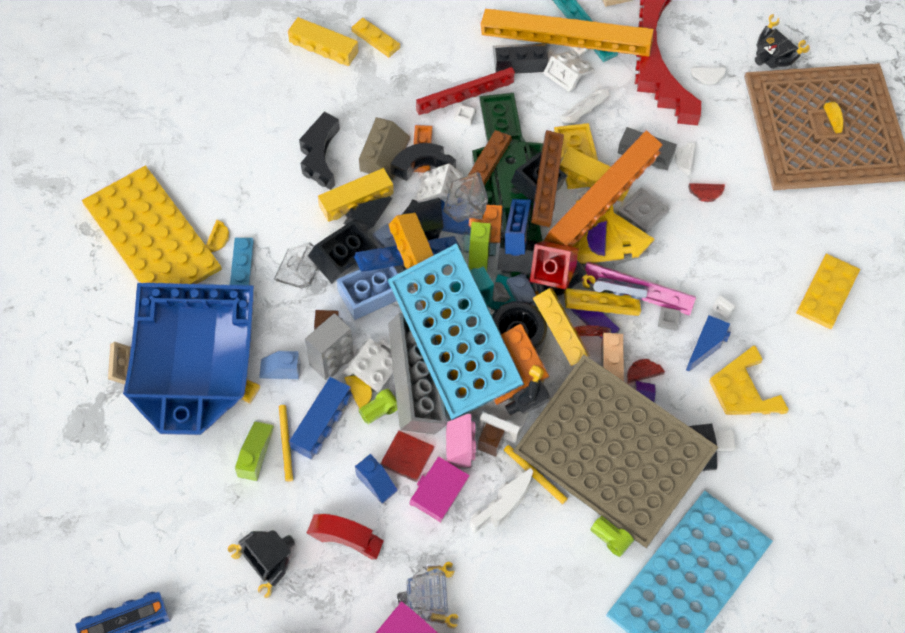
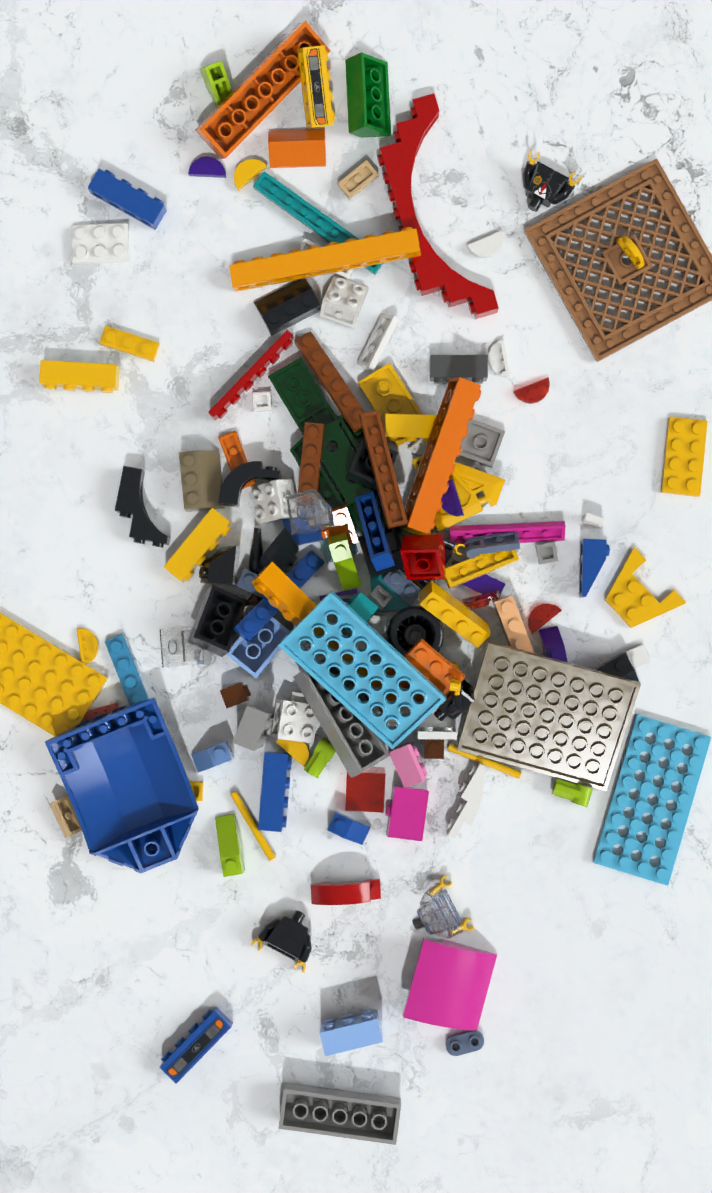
camera: 15 degrees left, 25 degrees up
(531, 113) = (330, 379): none -> dark orange plate

